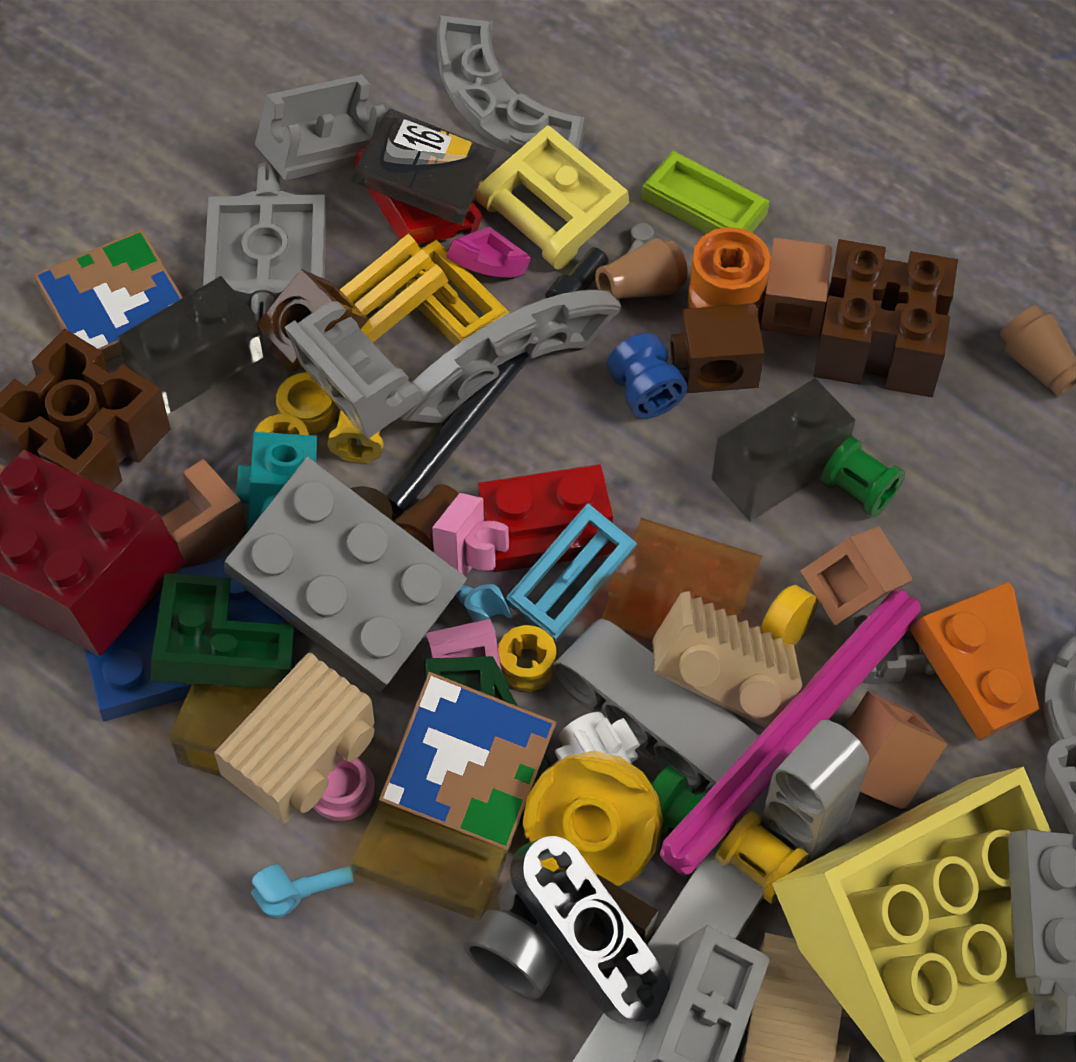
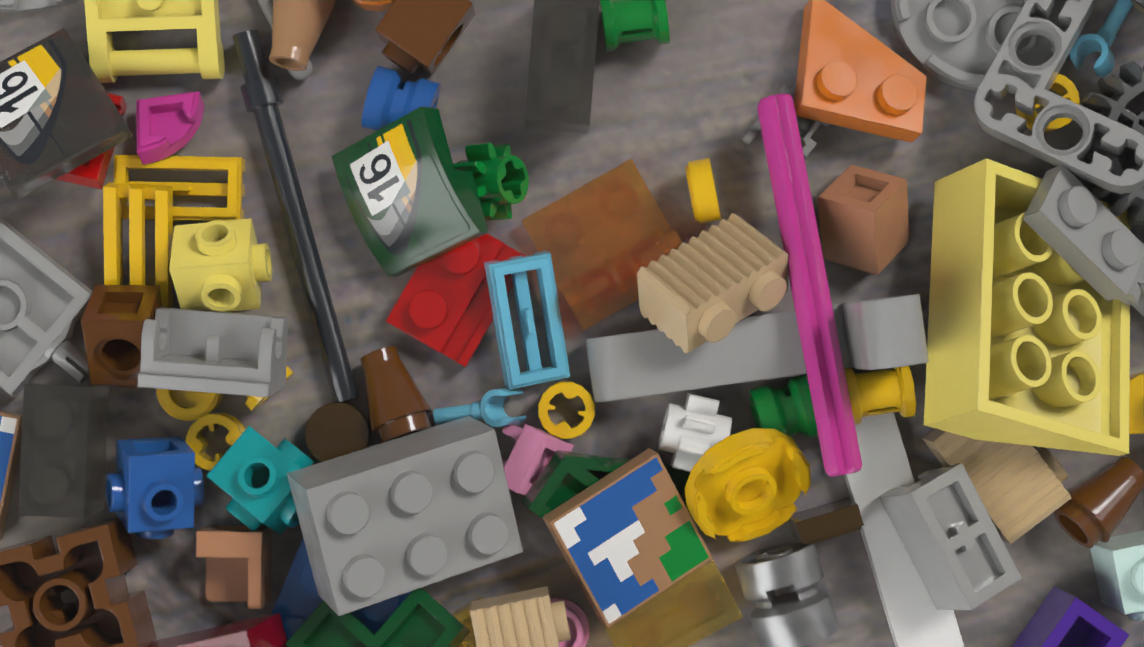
camera: 45 degrees left, 30 degrees up
(217, 393) = (154, 486): none -> blue brick
(414, 333) = (219, 266): none -> light yellow brick
(466, 539) = (432, 381): bright pink tile -> none
(538, 329) = (292, 177): light grey tile -> none
(588, 415) = (409, 193): none -> dark green slope
(603, 984) = (816, 584): beam -> none
(648, 467) = (498, 178): none -> green gear
(856, 574) = (717, 110): nougat panel -> none

